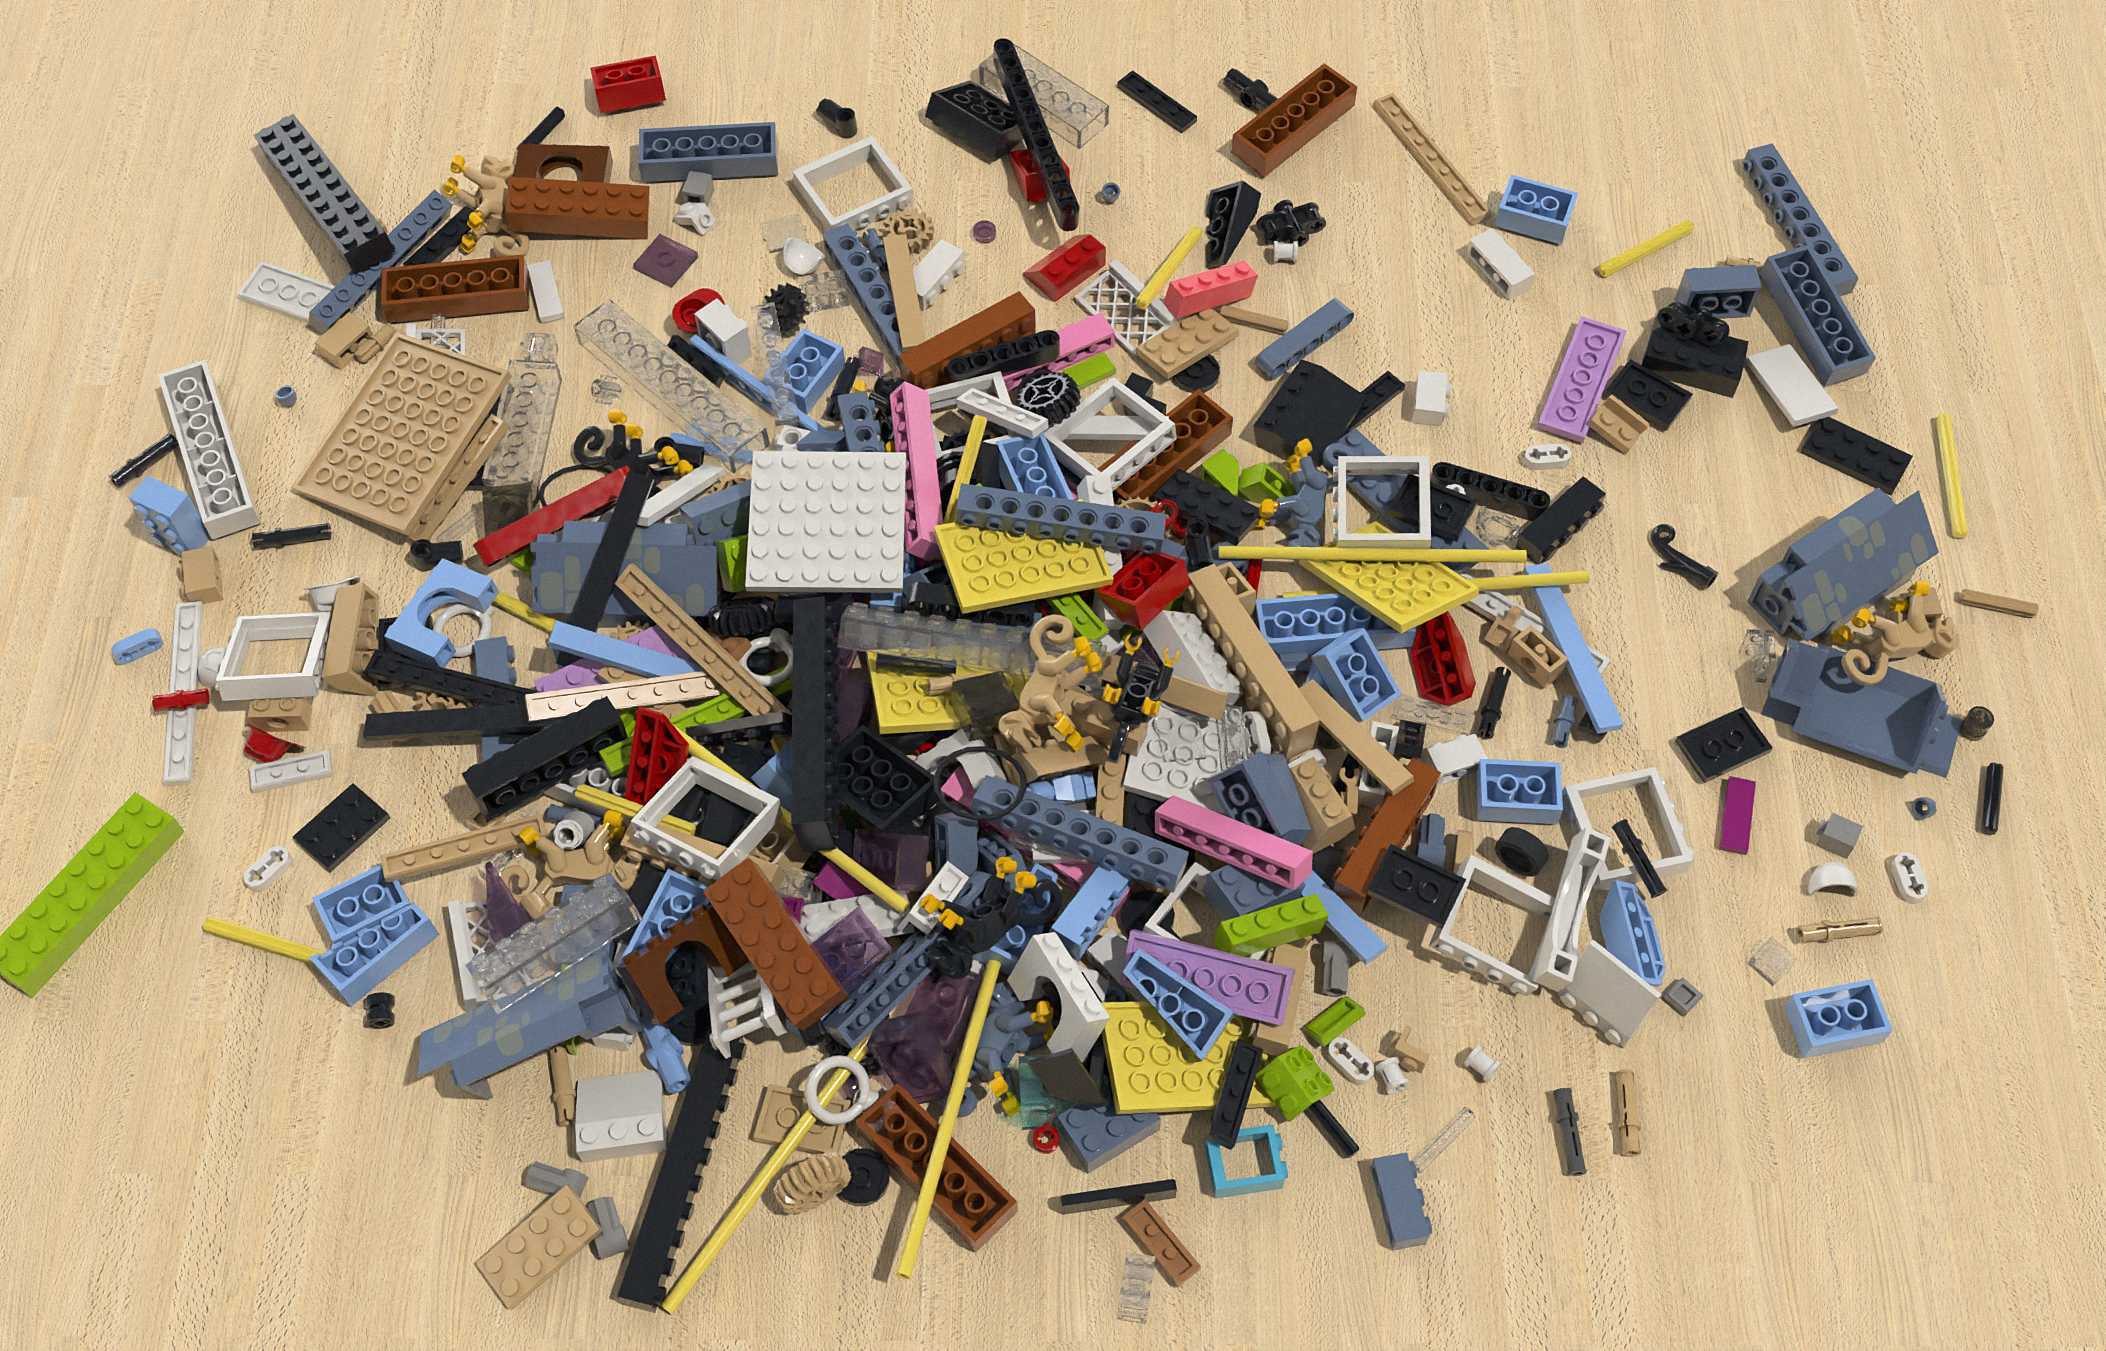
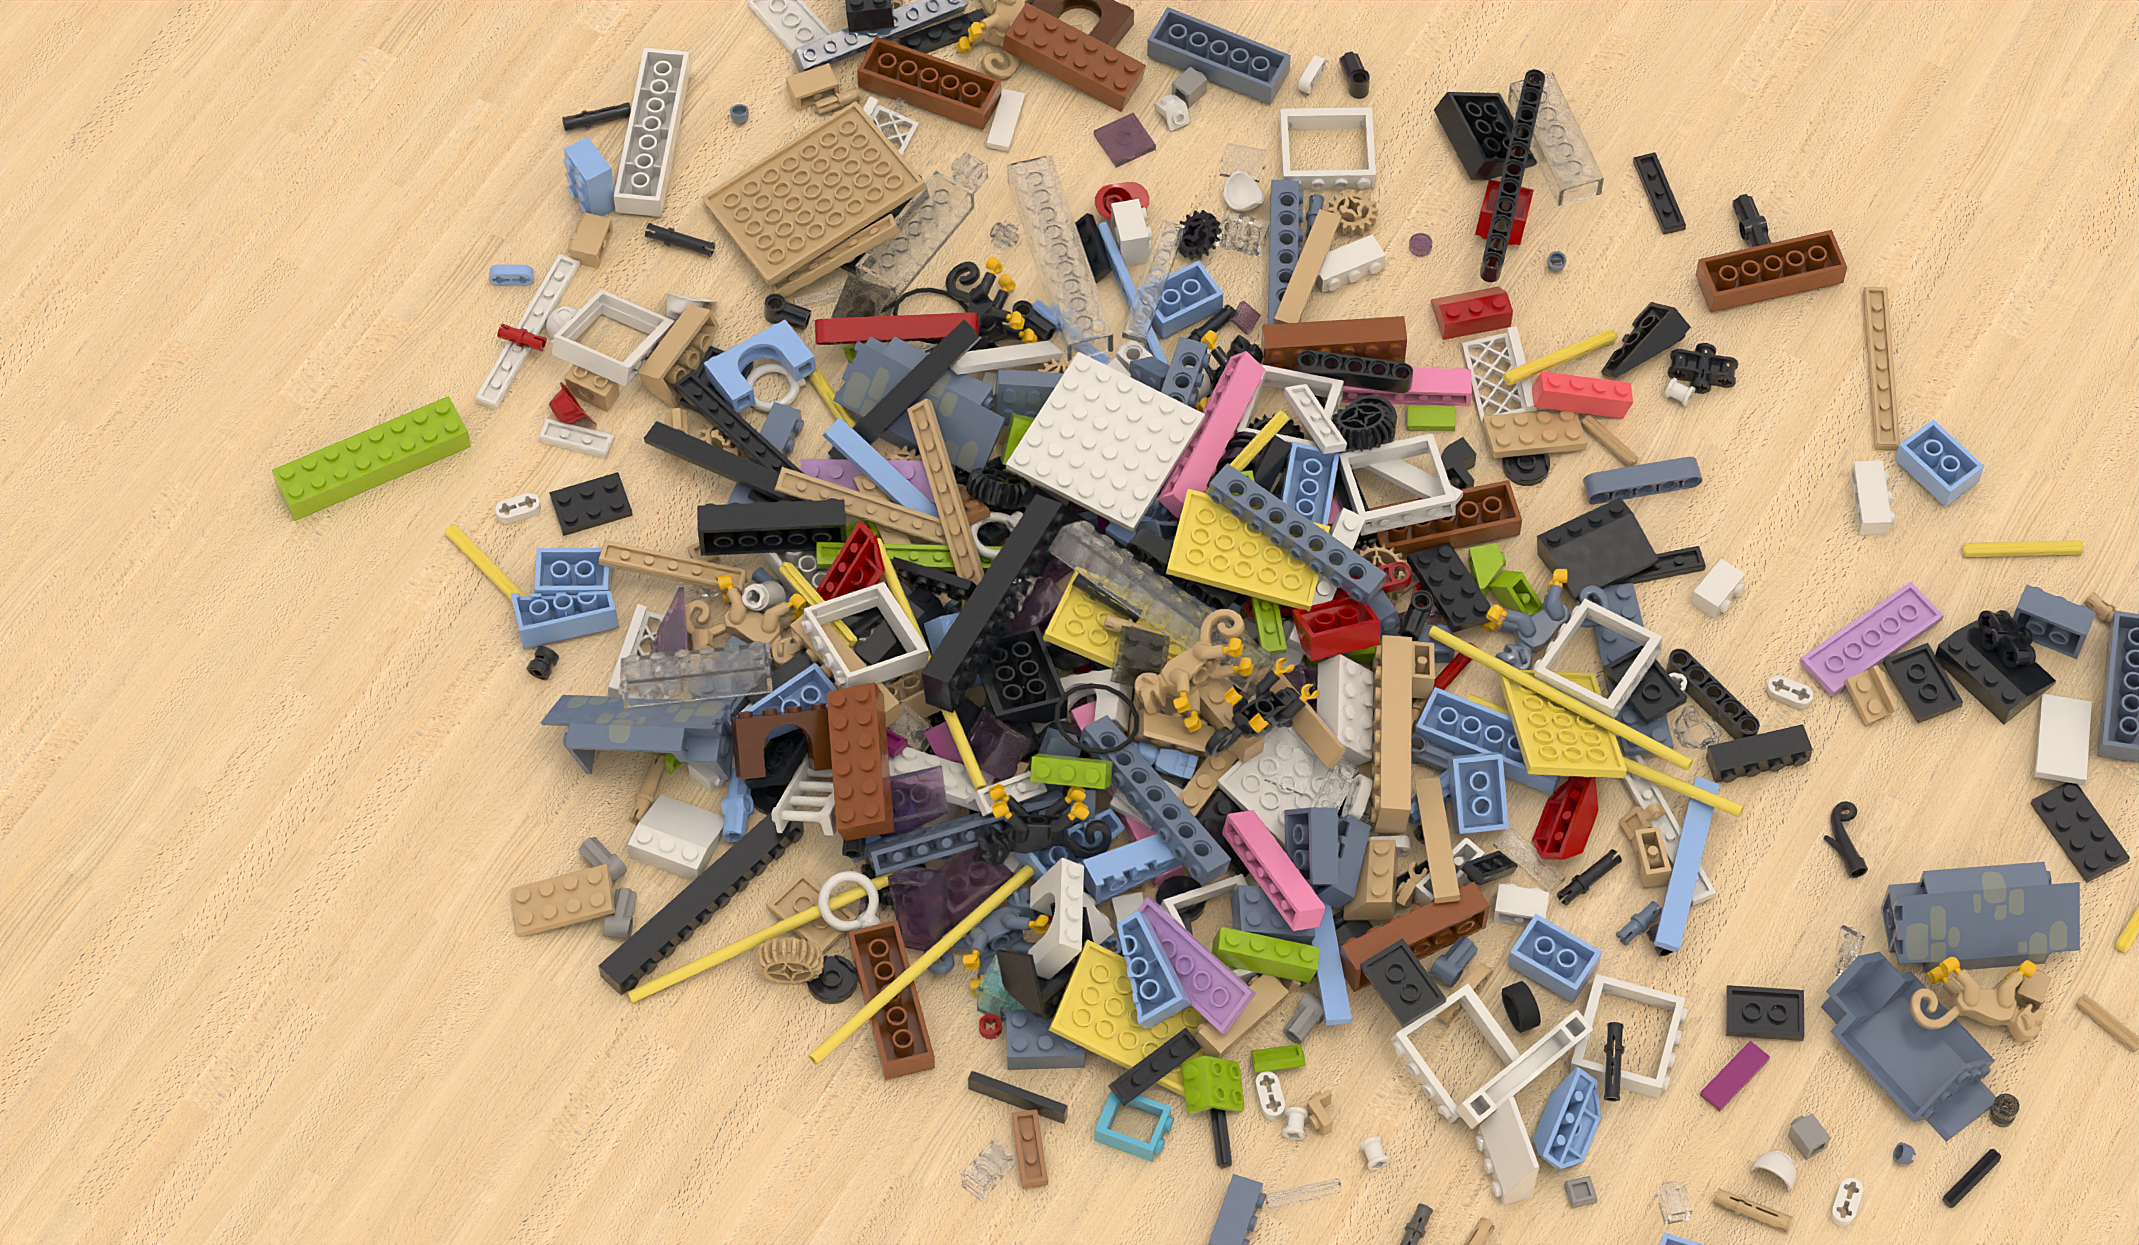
camera: 30 degrees right, 0 degrees up
(800, 133) = (1312, 74): none -> white beam
(988, 846) = (1071, 771): none -> lime brick

